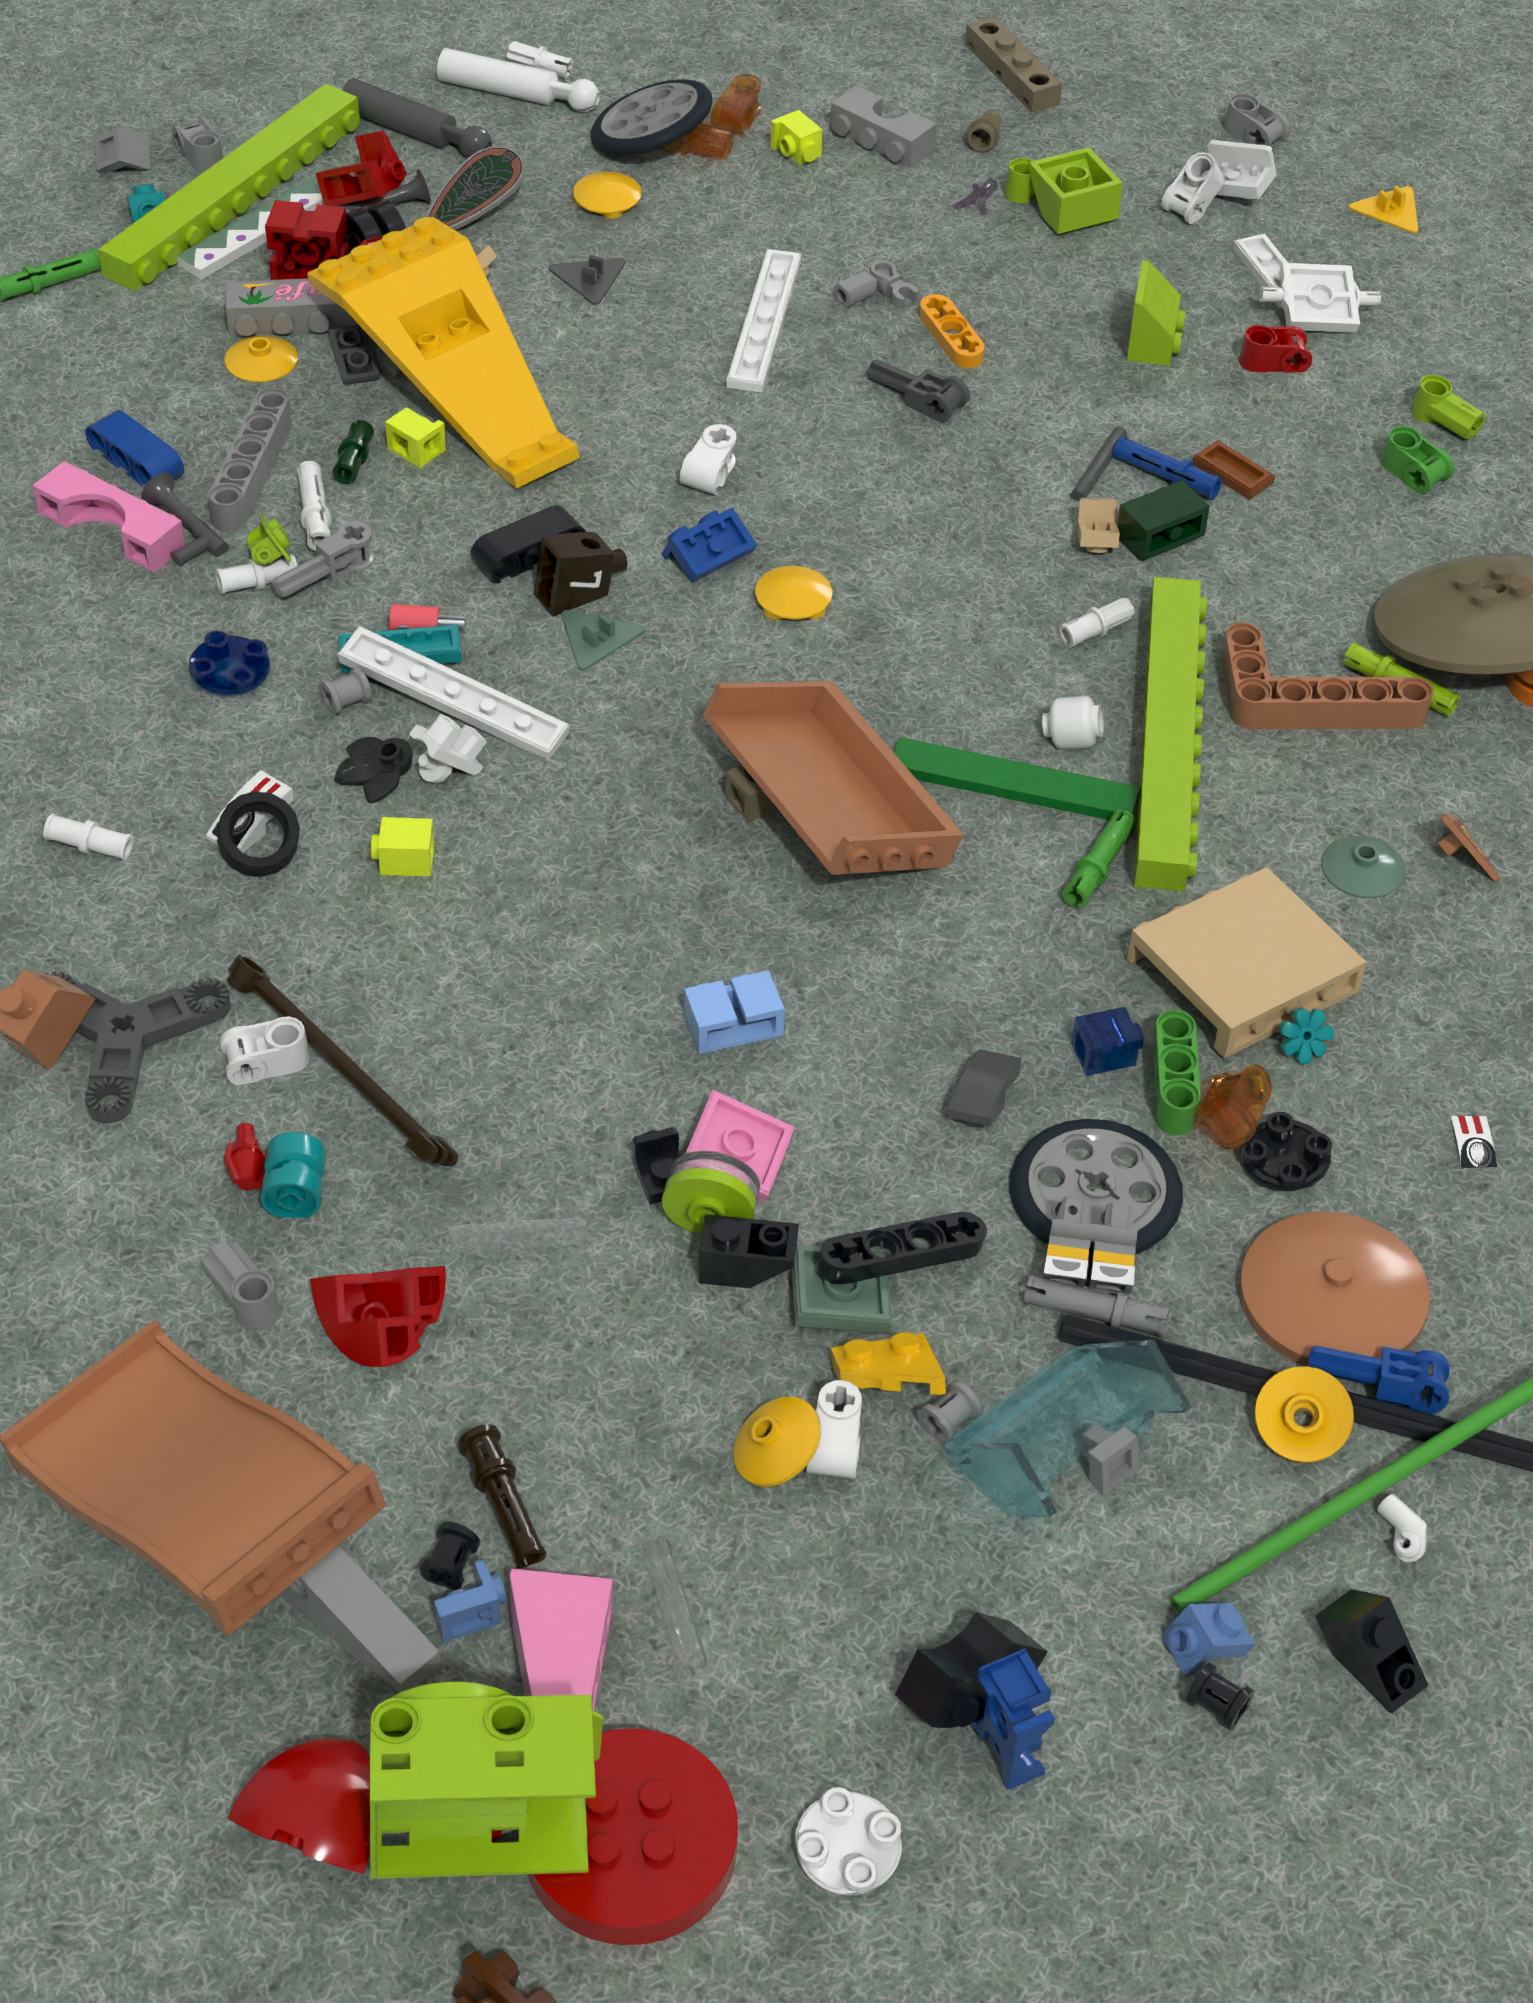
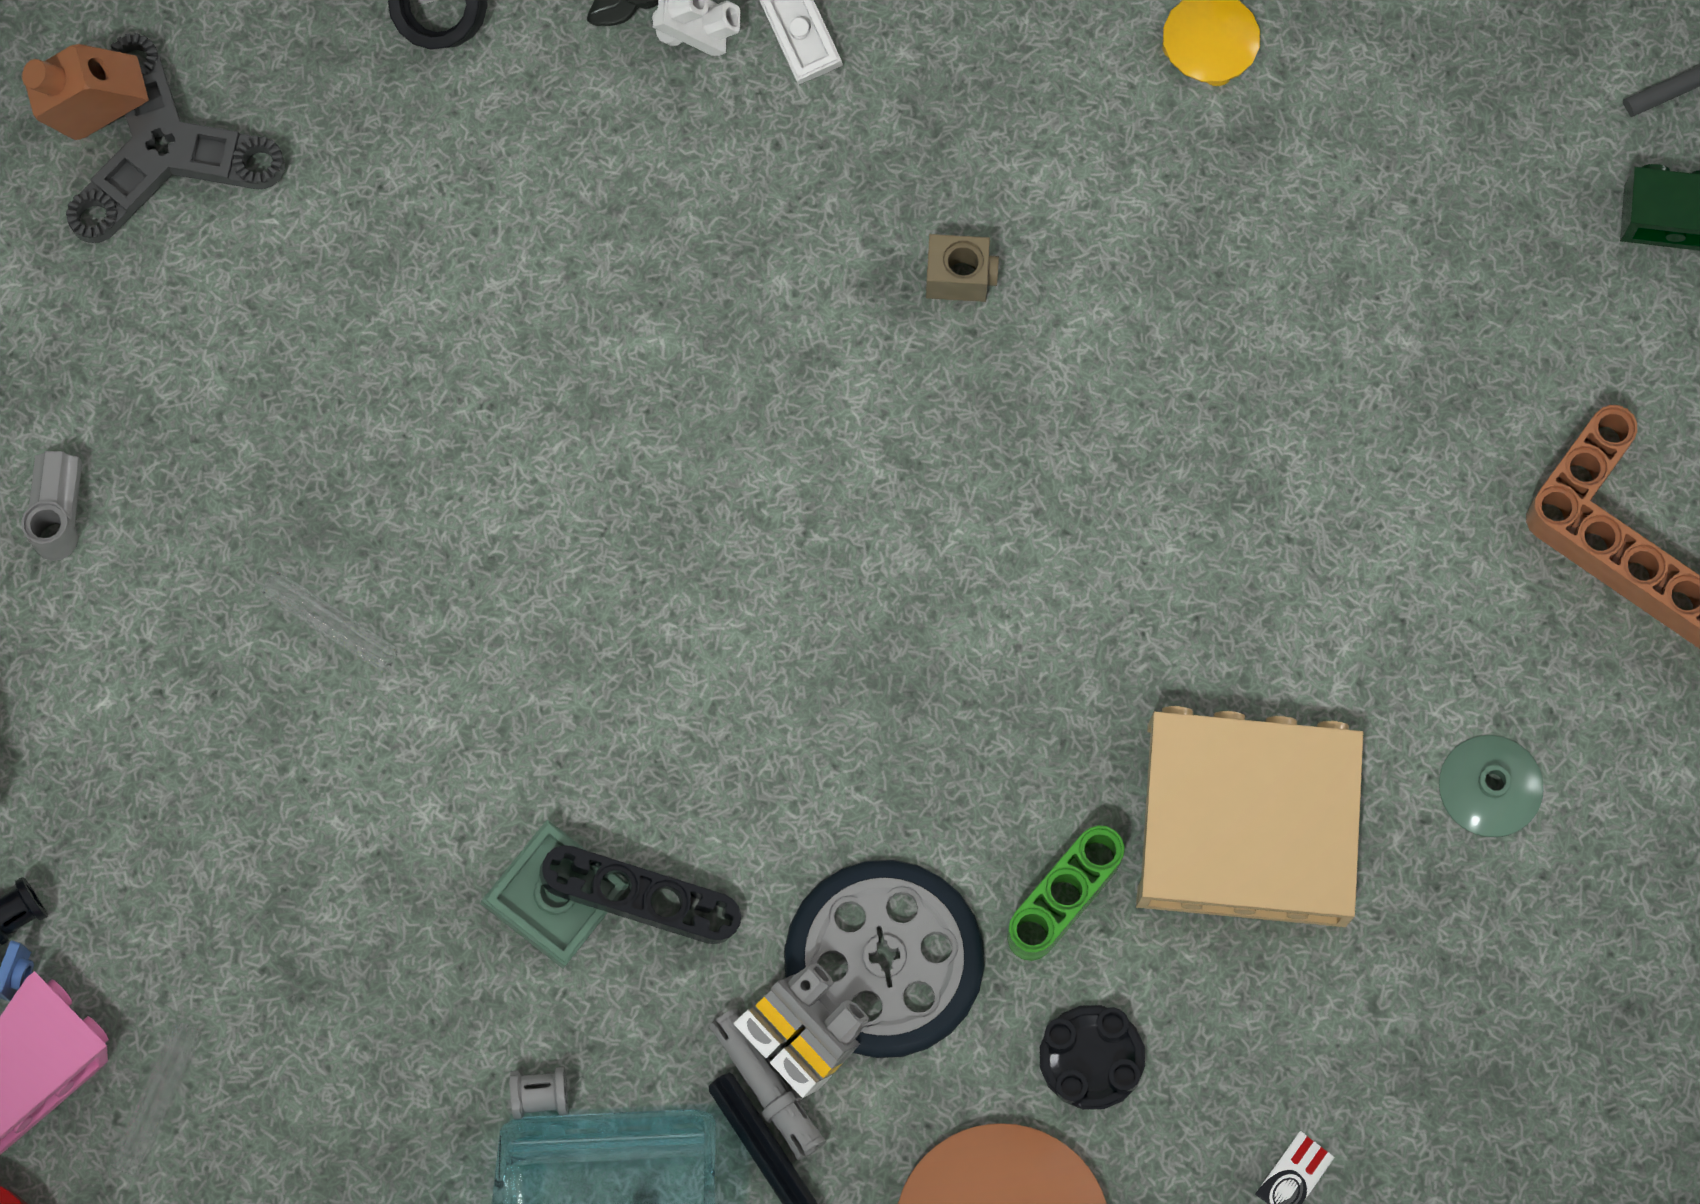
camera: 40 degrees right, 25 degrees up
(245, 1158) = (160, 368): red piece -> none
(248, 976) = (316, 472): dark brown hinge -> none
(267, 1049) = (254, 256): white piece -> none
(293, 1175) = (177, 421): teal wheel -> none
(379, 1313) = (142, 620): red brick -> none
(404, 846) = (567, 105): neon yellow brick -> none
(496, 1480) = (109, 860): dark brown pin -> none
(652, 1160) = (508, 643): black bracket -> none
(709, 1185) = (507, 717): lime piece -> none
(734, 1012) = (711, 520): light blue piece -> none
(744, 1134) = (591, 673): bright pink tile -> none
(745, 1250) = (495, 795): black slope -> none
(777, 1441) = (363, 1010): yellow dish -> none
(832, 777) = (1022, 316): nougat panel -> none
(840, 1435) = (414, 1046): white piece -> none
(888, 1363) = (527, 1006): yellow wing -> none
(982, 1088) = (870, 773): dark grey slope -> none
(1016, 780) = (1228, 433): green tile -> none
(1073, 722) = (1344, 408): white head -> none
(1094, 866) = (1204, 598): bright green pin -> none
(1096, 622) = (1490, 292): white axle -> none
(1097, 524) = (1603, 168): tan bracket -> none
(1106, 1041) = (1032, 810): clear blue brick -> none
(1170, 737) = (1433, 485): lime brick -> none
(1236, 1105) = (1079, 971): clear orange piece -> none
(1305, 1035) = (1230, 944): teal plant -> none
(1461, 837) = (1614, 835): nougat piece -> none

